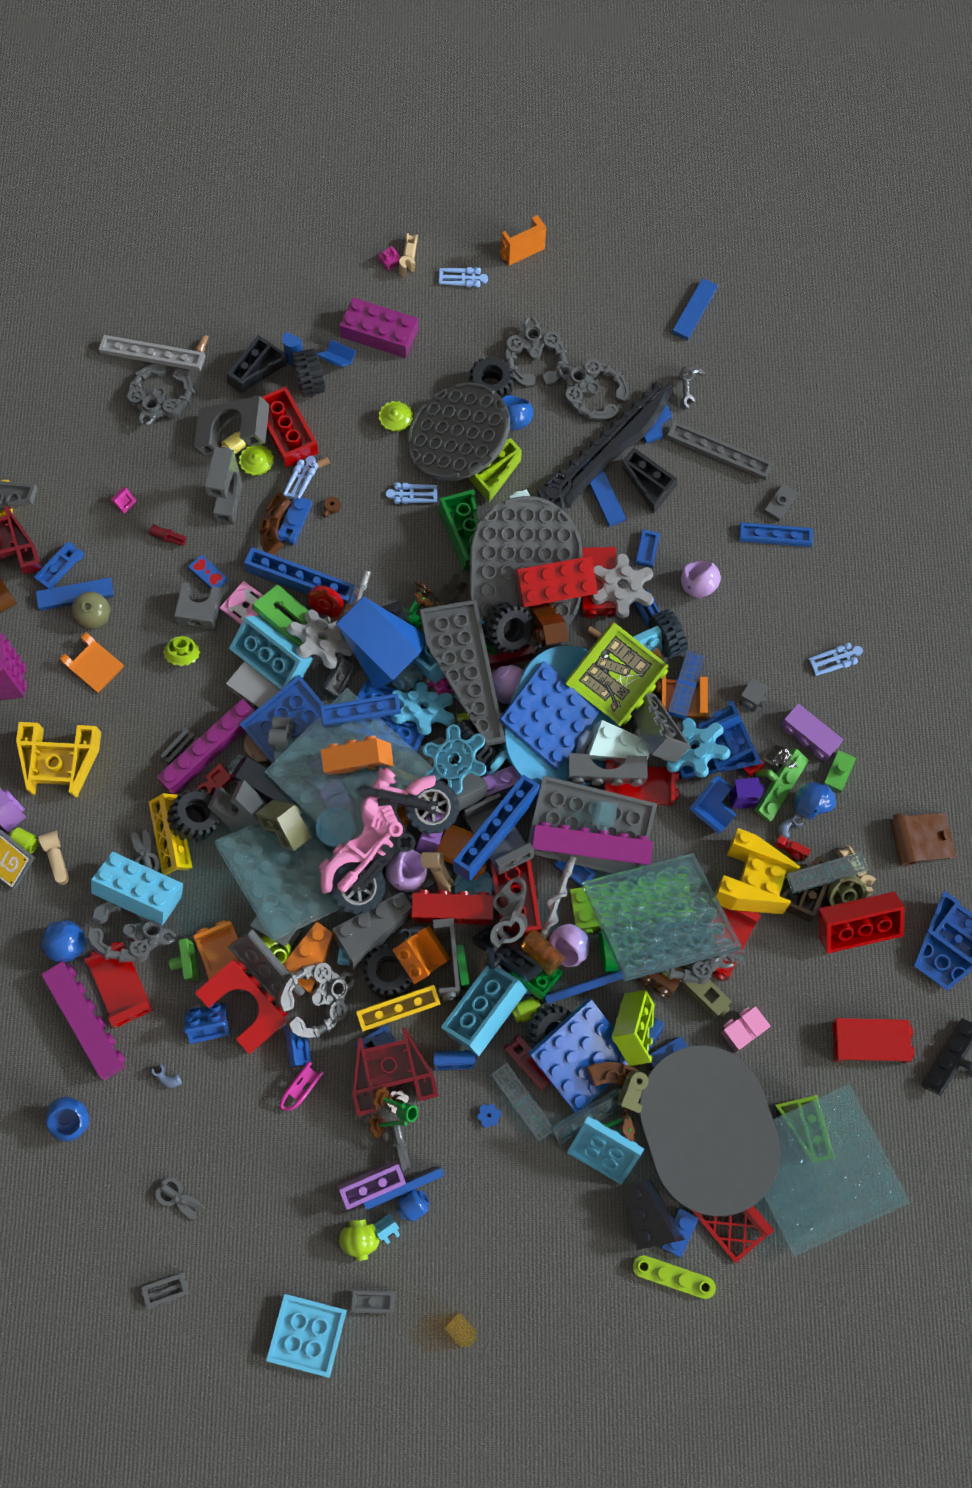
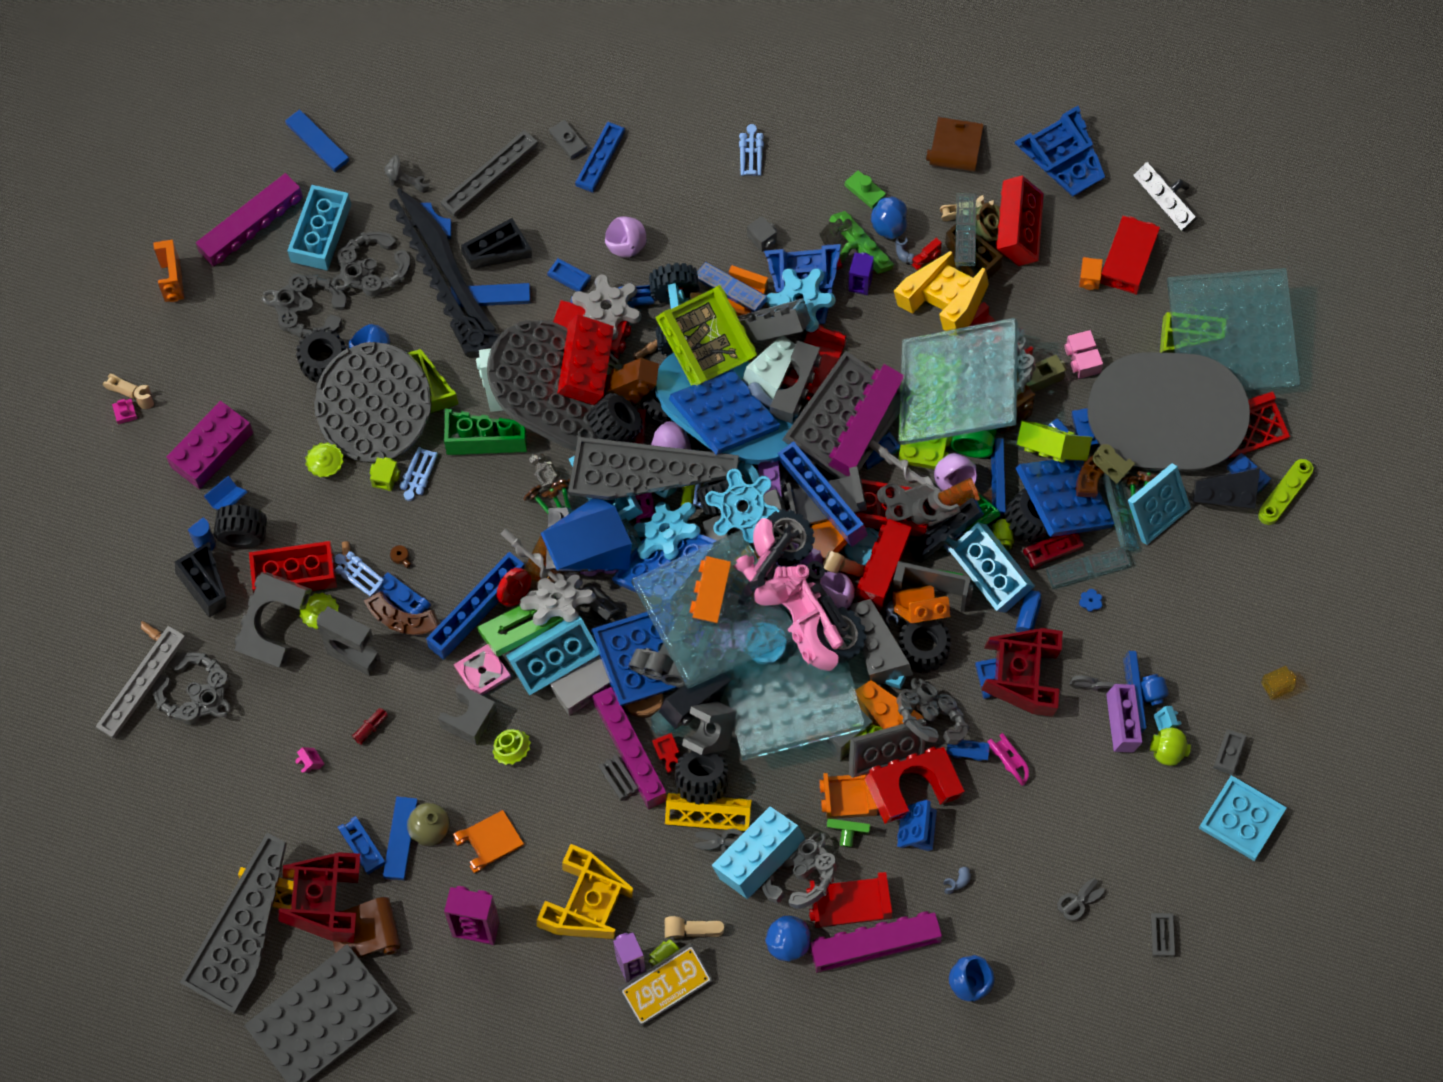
camera: 65 degrees left, 5 degrees down
(207, 572) = (429, 698): blue tile -> none
(234, 442) = (288, 629): light yellow brick -> none
(285, 822) = (746, 682): olive brick -> none
(360, 710) = (662, 572): blue tile -> none
(398, 1007) = (963, 645): yellow brick -> none
(398, 1104) = (1050, 675): plant -> none
(401, 466) = (384, 473): none -> lime brick
(468, 281) = (190, 328): light blue piece -> none
(597, 284) = (249, 220): none -> magenta brick
(604, 815) = (843, 397): clear light blue brick -> none
(610, 336) = (319, 227): none -> medium azure brick
(710, 806) = (861, 309): blue panel -> none
(811, 732) = (819, 198): medium lavender brick -> none
(835, 1008) = (1090, 273): none -> orange brick

